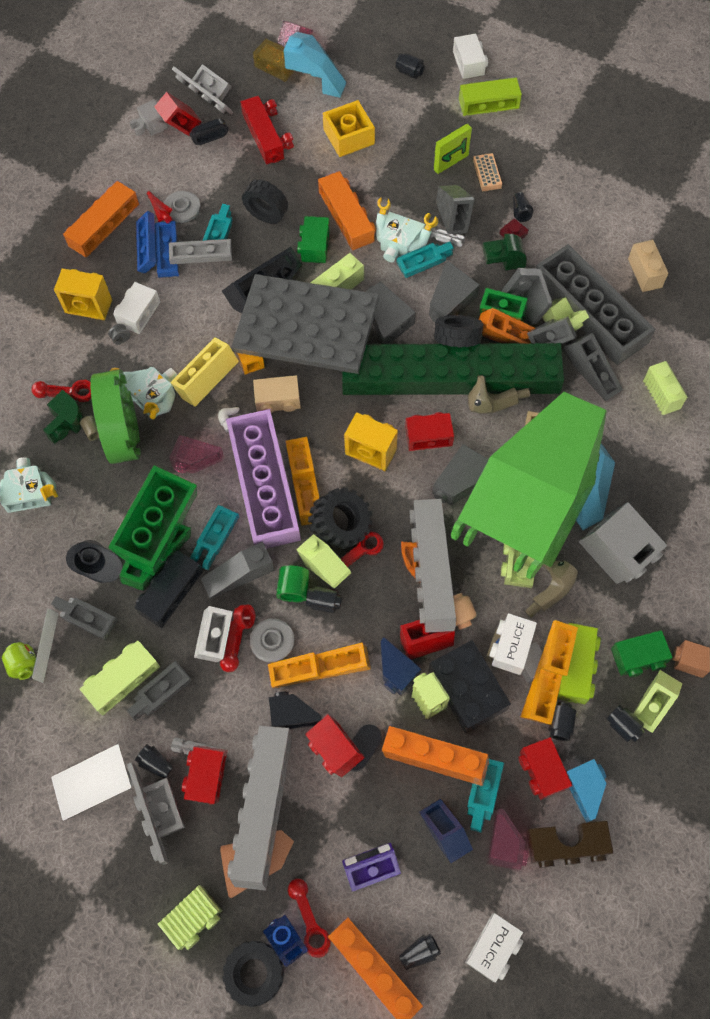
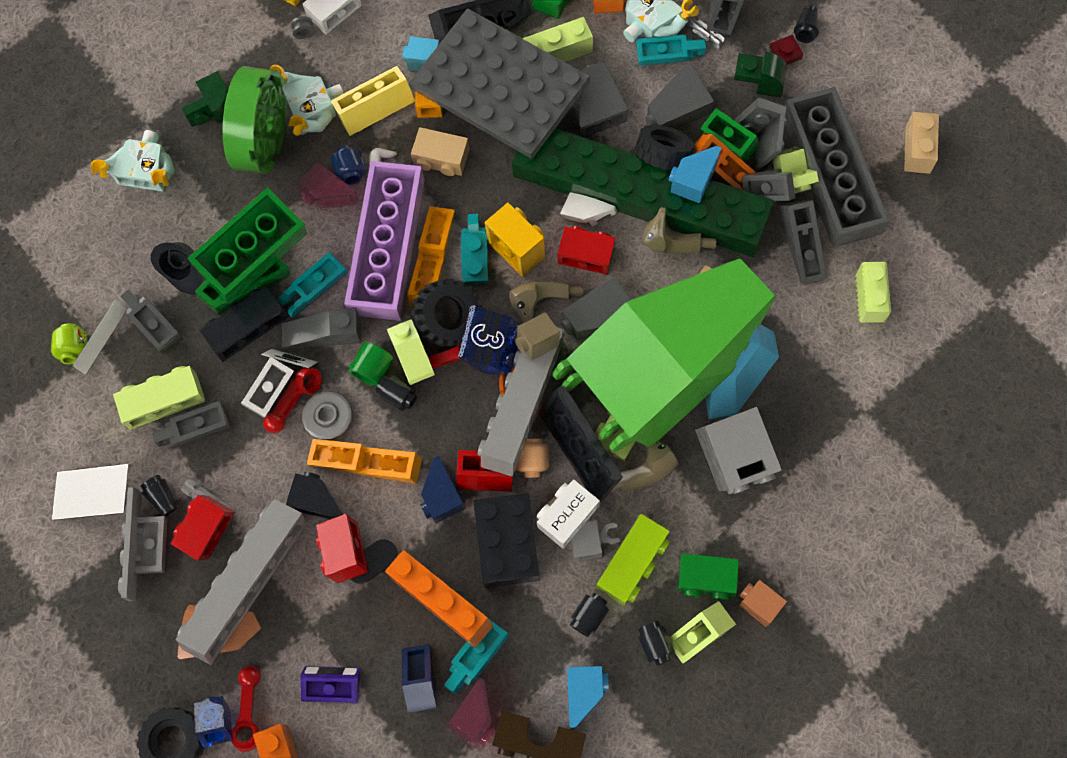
camera: 25 degrees right, 5 degrees up
(41, 390) = (199, 63): red piece -> none
(190, 918) = (132, 663): yellowish green brick -> none
(204, 429) = (348, 164): none -> dark blue head
(221, 603) = (289, 358): none -> white sticker
(227, 322) = (418, 51): none -> medium azure brick
(338, 464) = (474, 253): none -> teal hinge
(388, 529) = (489, 341): none -> clear blue slope
(397, 484) = (527, 295): none -> dark tan animal
(413, 400) = (586, 209): none -> white slope
(426, 510) = (537, 336): none -> dark tan brick
(429, 694) = (458, 533): yellowish green brick -> none
(494, 342) = (694, 174): none -> dark azure slope
(495, 584) = (580, 444): none -> black tile
(544, 768) = (548, 656): red brick -> none
(551, 667) = (595, 558): light orange slope -> none

